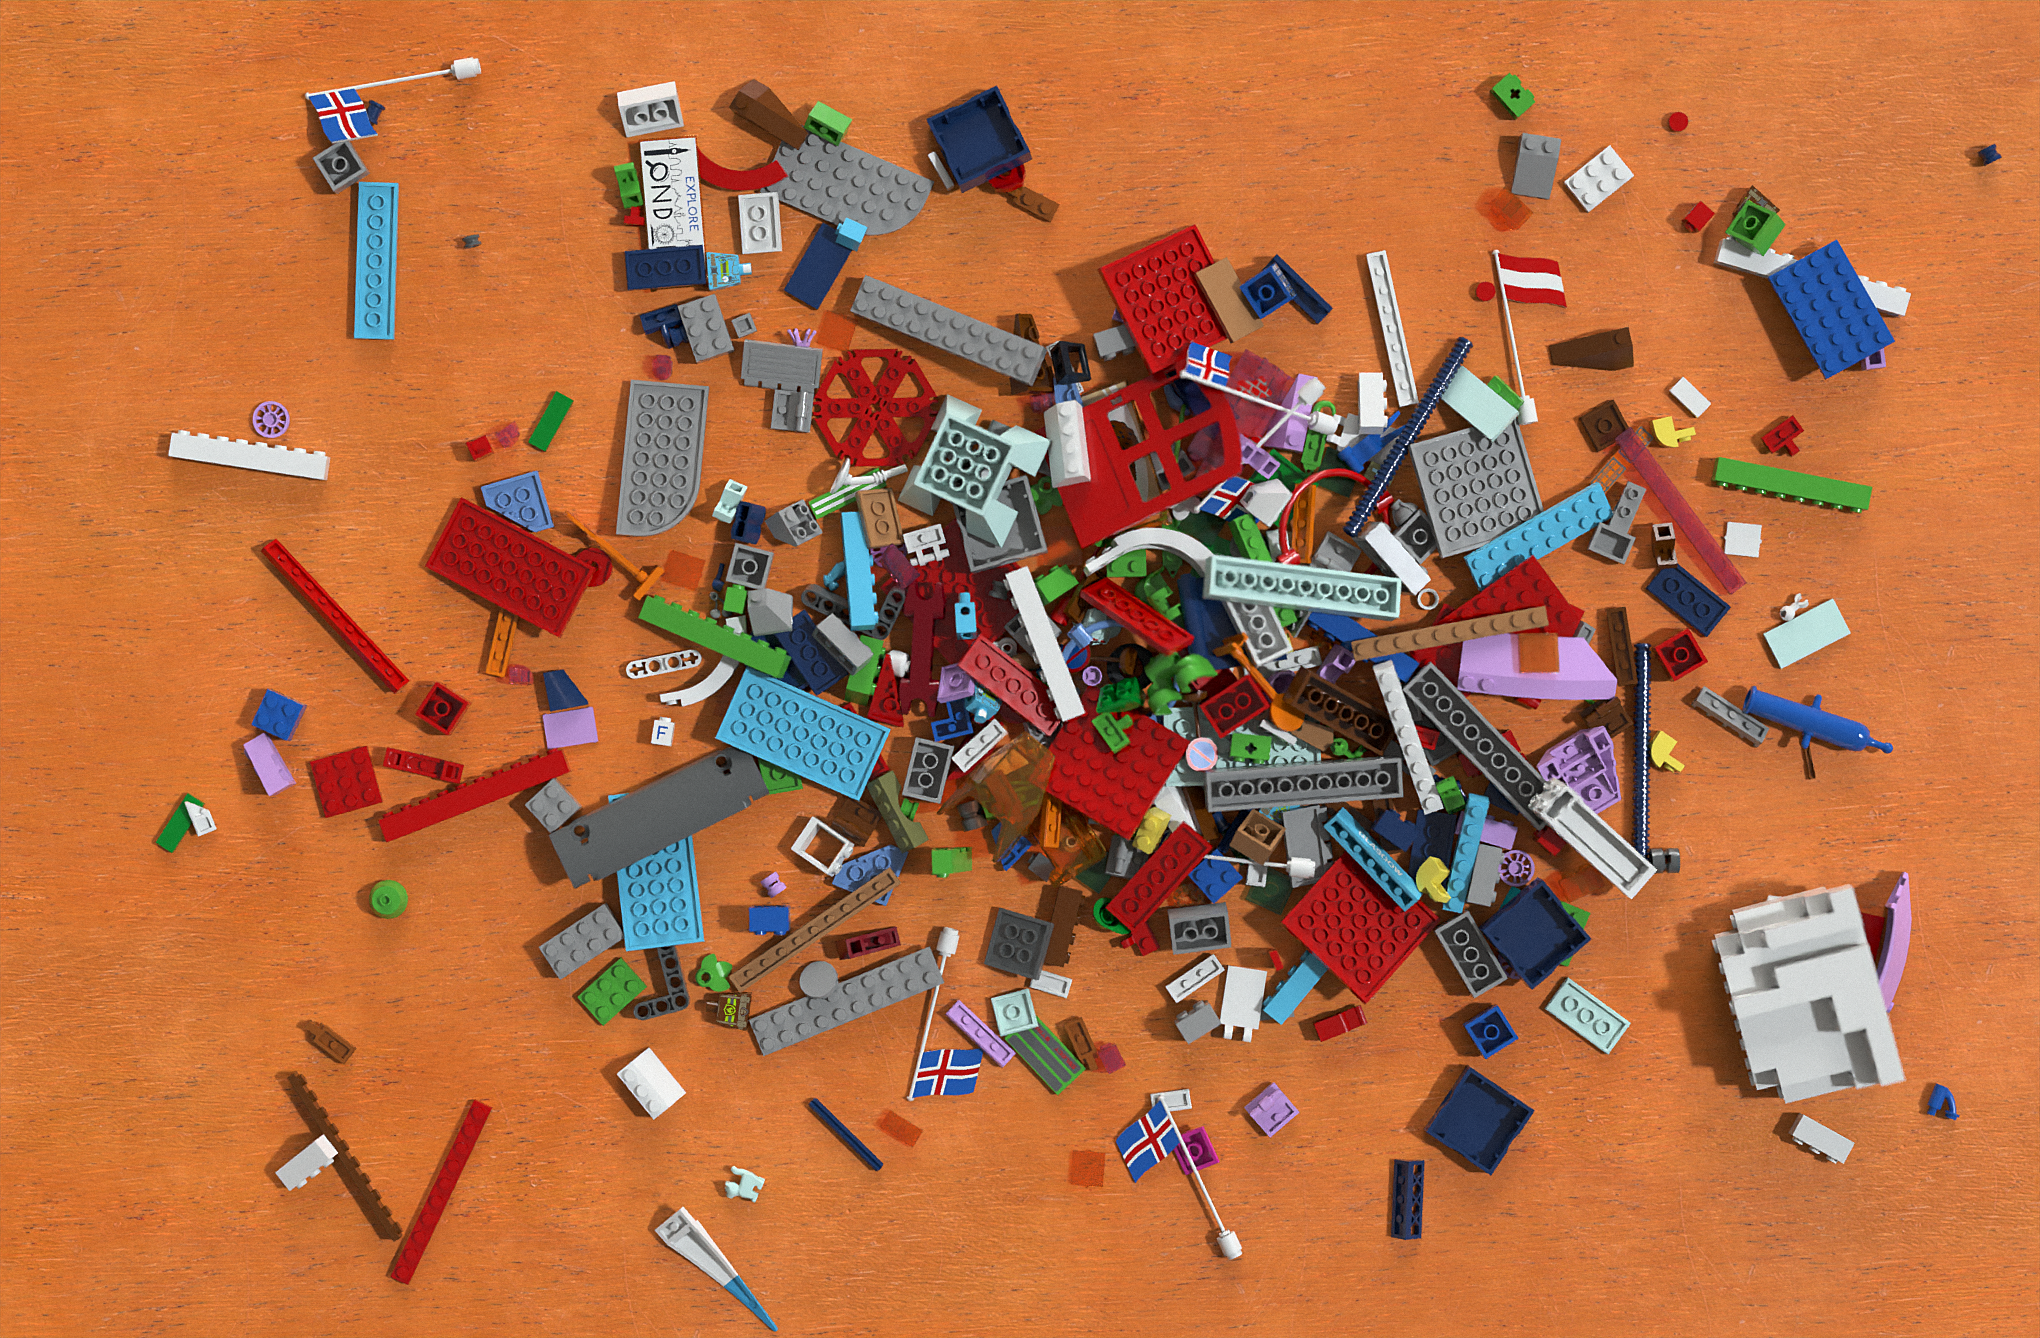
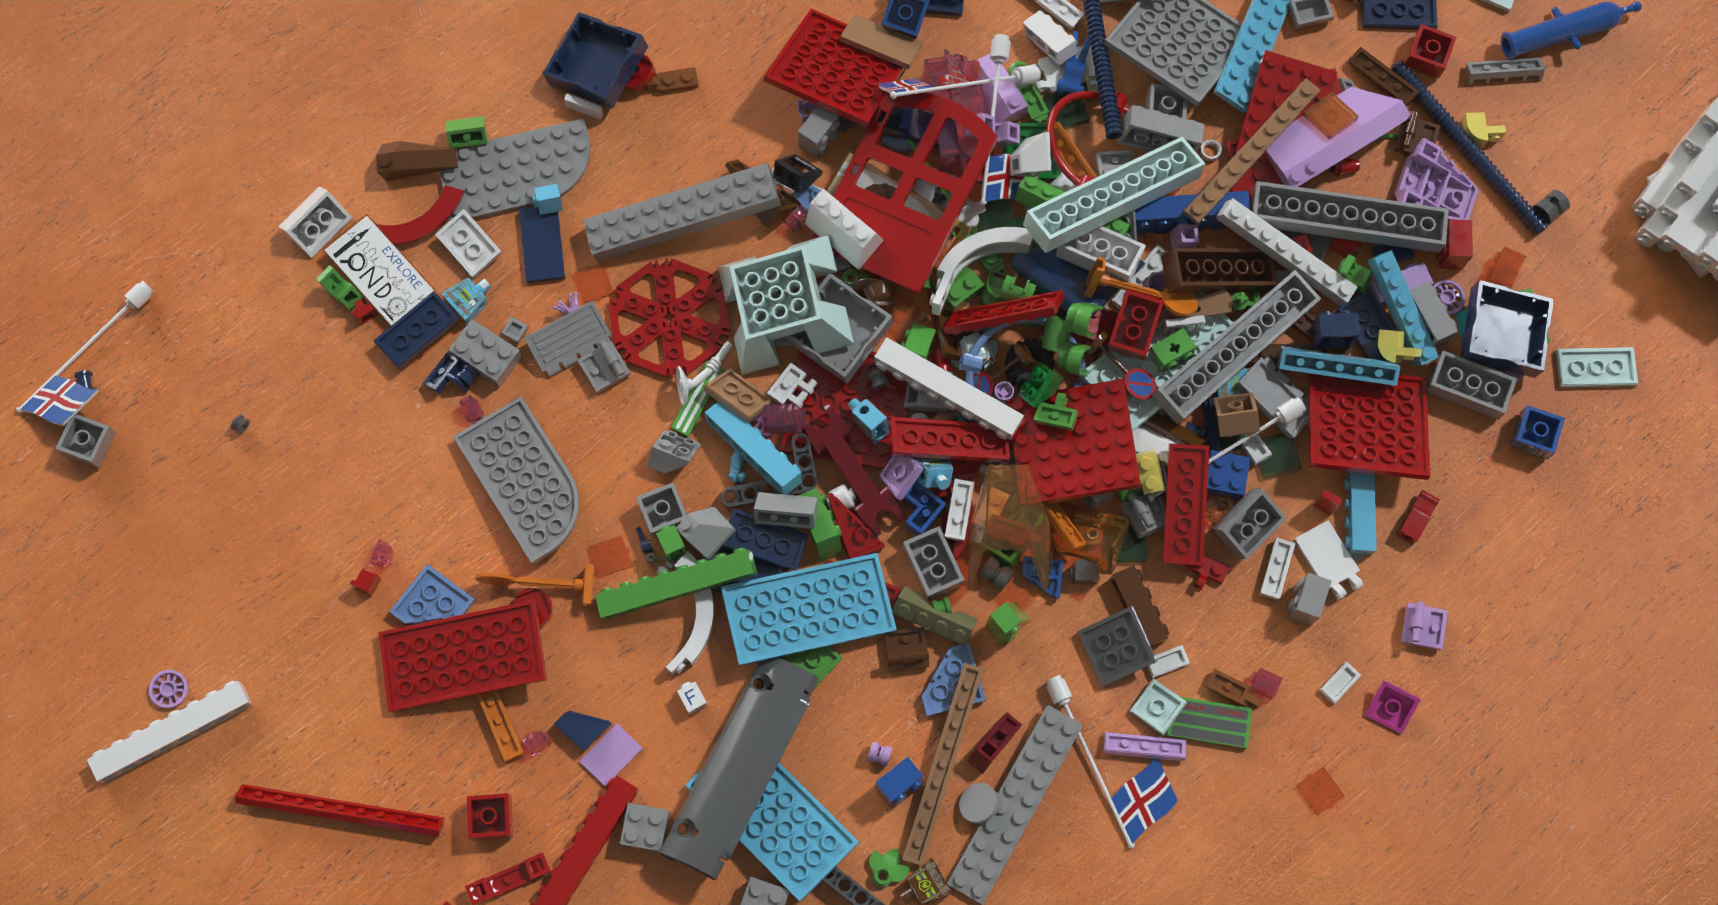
camera: 45 degrees left, 15 degrees down
(376, 260) = (170, 496): medium azure plate -> none
(551, 421) = (410, 518): green tile -> none
(664, 666) = (652, 644): white beam -> none
(730, 498) = (606, 471): light aqua brick -> none
(748, 522) = (633, 475): dark blue brick -> none
(807, 836) = (876, 691): white window -> none
(901, 1128) = (1143, 877): clear orange plate -> none
(1053, 517) = (876, 291): none -> reddish brown piece
(1106, 919) = (1171, 573): green piece -> none
(1150, 1142) = (1352, 728): flag -> none
(1402, 511) = (1138, 96): light grey piece -> none
(1404, 1199) = (1588, 615): dark blue fence -> none
(1479, 1120) = (1588, 508): dark blue tile -> none
(1591, 837) = (1487, 219): white brick -> none
(1810, 767) = (1591, 63): dark orange piece -> none

